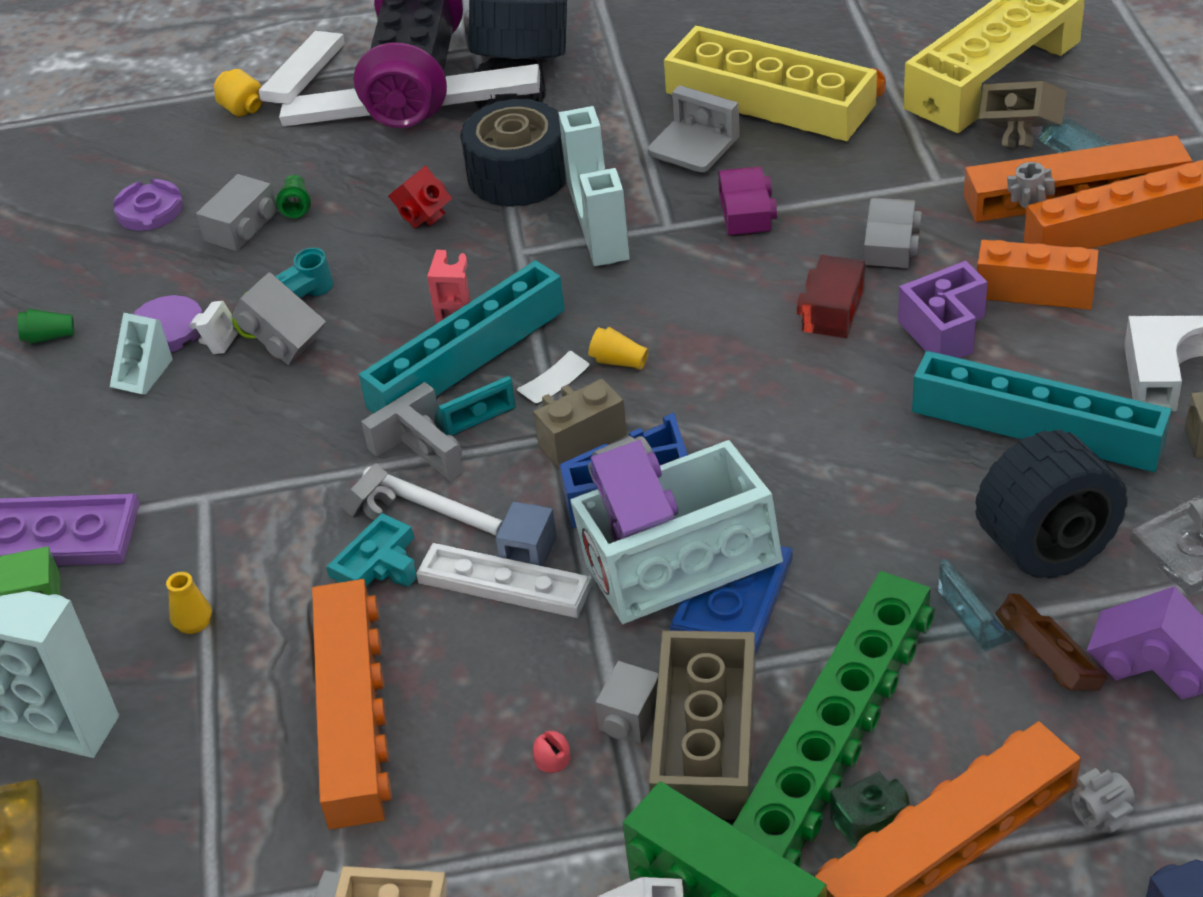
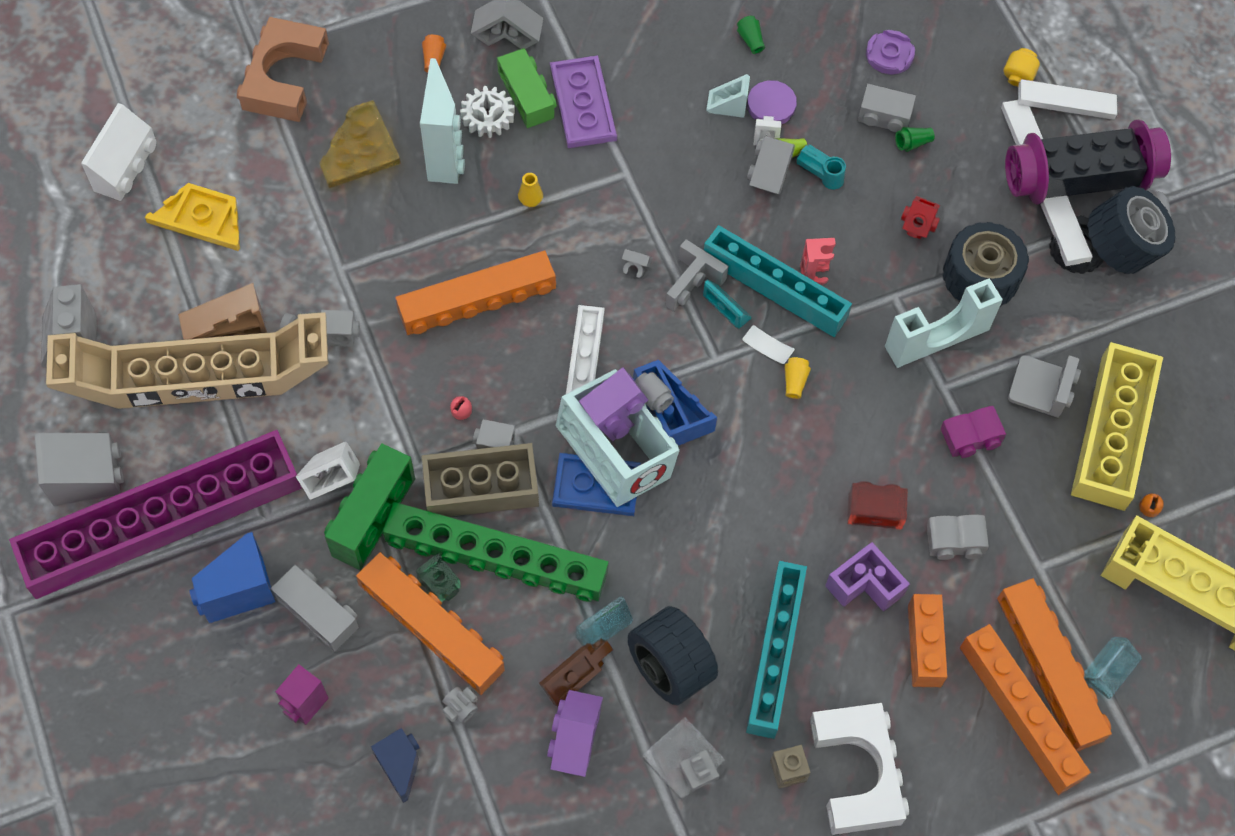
camera: 70 degrees right, 20 degrees up
(378, 554) = (588, 279): teal hinge -> none
(442, 504) = (642, 300): white bar -> none
(527, 533) = (615, 355): sand blue brick -> none
(579, 421) = (717, 366): dark tan brick -> none
(1020, 107) = (1120, 614): dark tan brick -> none
(1030, 184) = (1009, 631): light grey gear -> none

